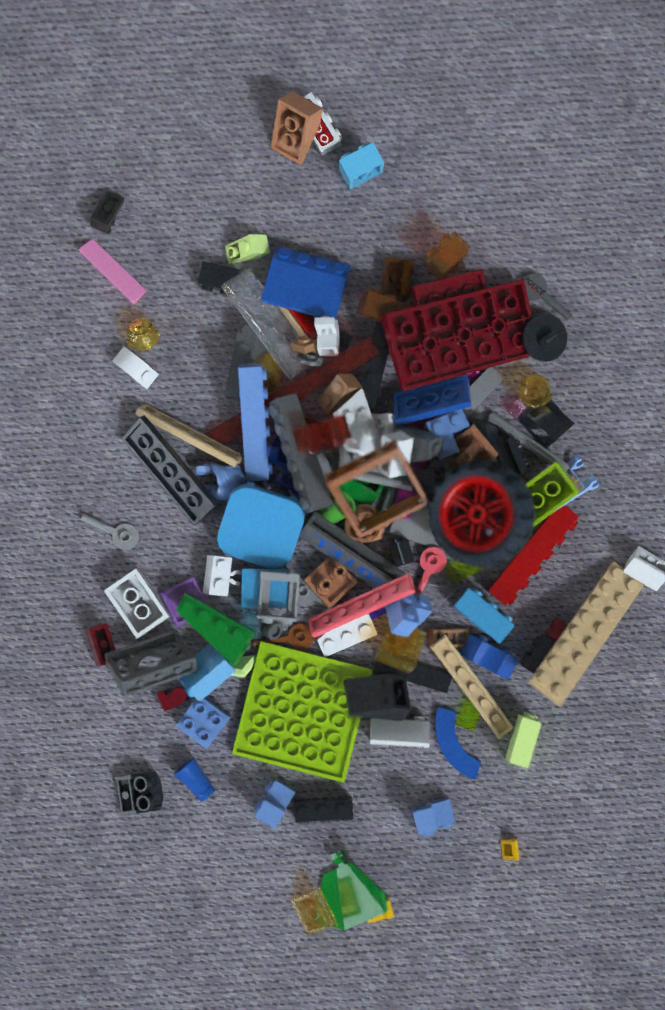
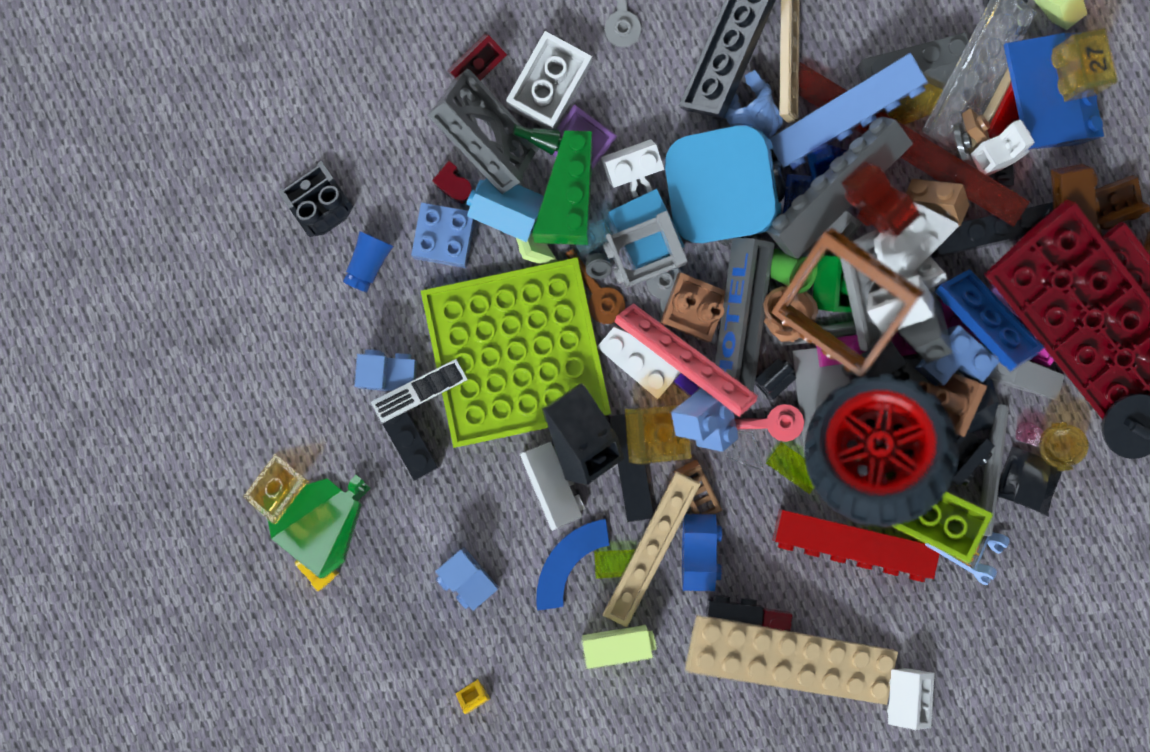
camera: 60 degrees right, 0 degrees up
(173, 625) = (545, 139): none -> dark green cone
(297, 787) = (418, 391): none -> sticker
(300, 261) = (1084, 65): none -> clear yellow brick
(483, 614) = (750, 519): dark azure brick -> none

